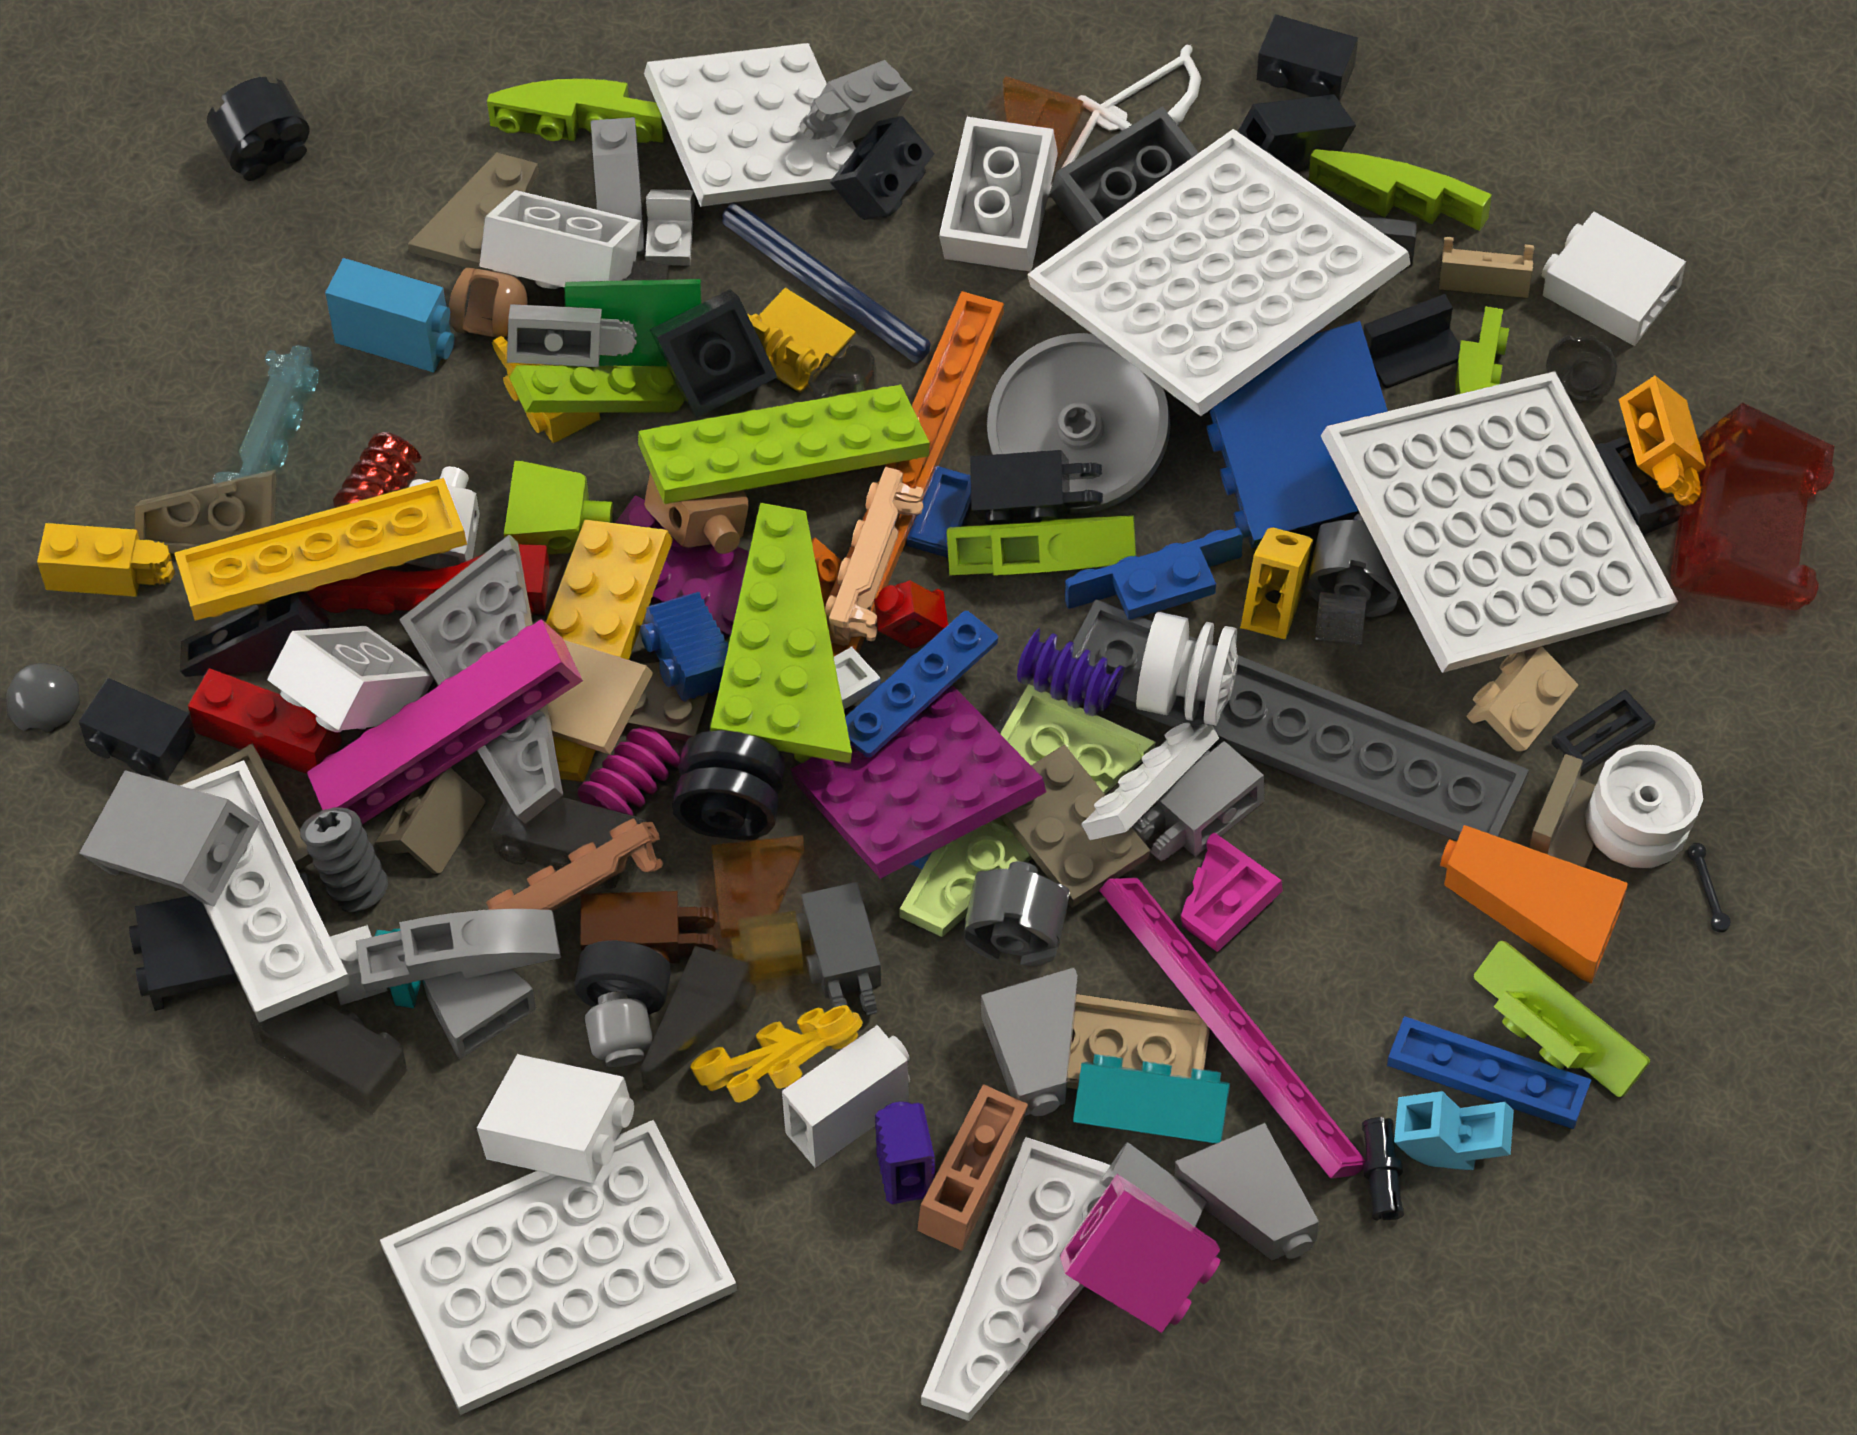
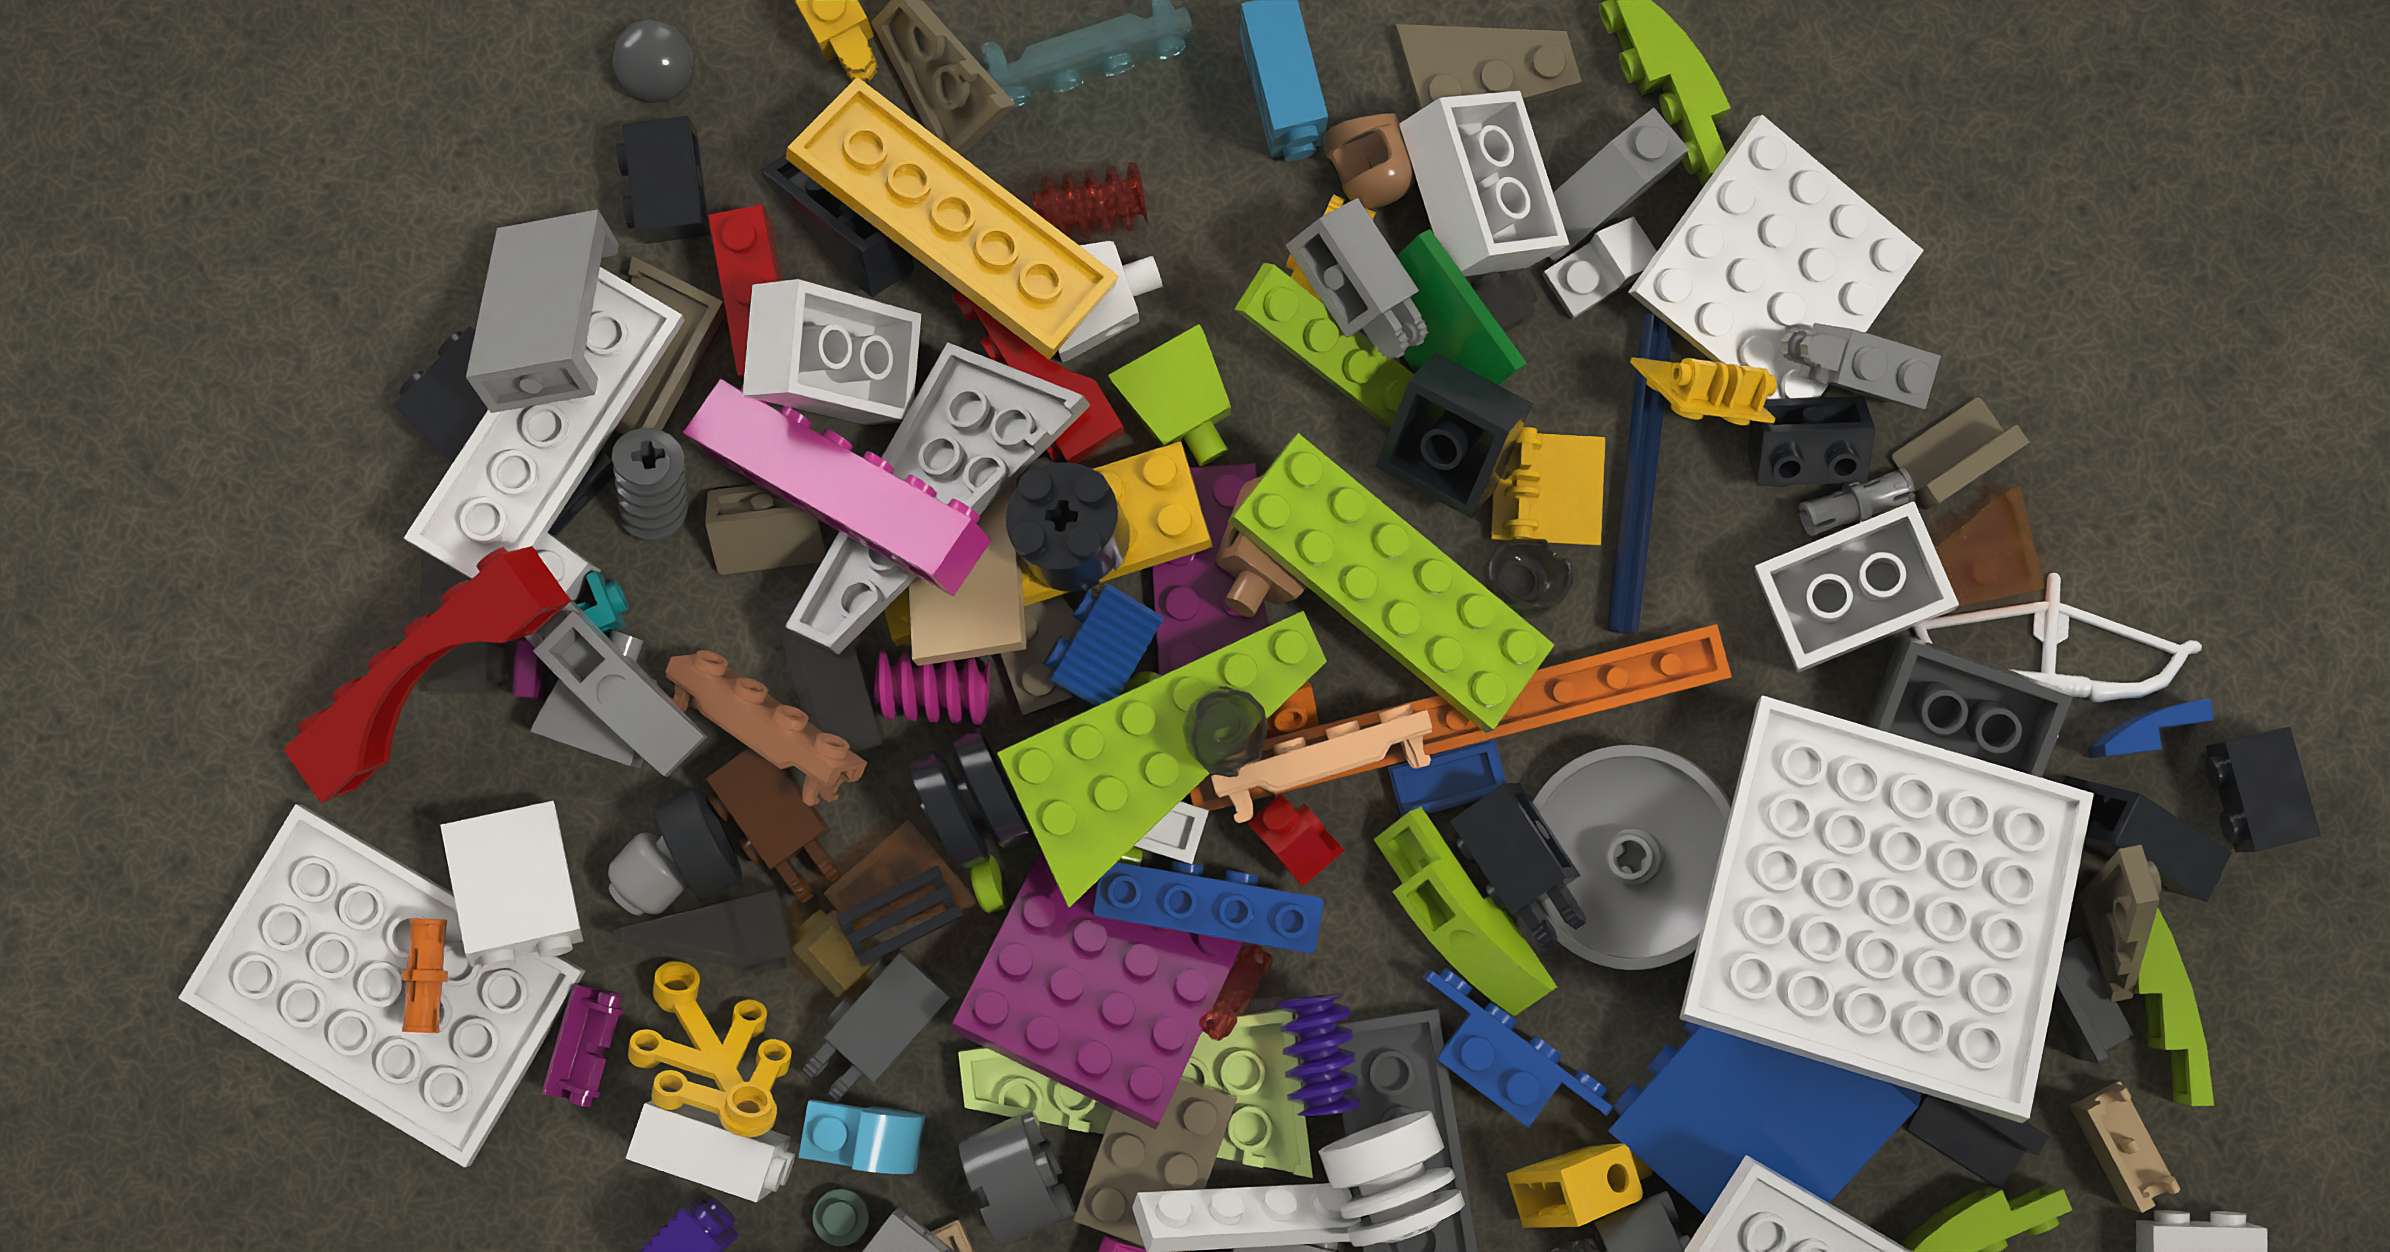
camera: 55 degrees right, 25 degrees up
(358, 961) = (355, 735): none -> red arch
(410, 1026) = (529, 673): none -> magenta tile
(590, 596) = (1083, 505): none -> black brick
(600, 1231) = (424, 975): none -> orange pin
(722, 1165) = (582, 1044): none -> magenta hinge
(779, 851) = (941, 894): none -> black tile
(796, 822) = (989, 886): none -> lime tile
(797, 185) = (1711, 388): none -> yellow hinge
(803, 579) = (1225, 730): none -> clear smoke hair
(916, 996) = (862, 1137): none -> medium azure brick
(940, 174) = (1857, 502): none -> light grey pin
(953, 98) = (1956, 452): none -> dark tan panel
(961, 1061) = (841, 1217): none -> sand green plate
(991, 709) = (1236, 992): none -> clear red axle
(1221, 96) = (2142, 732): none -> blue slope
(1327, 162) = (2119, 917): none -> dark tan wing

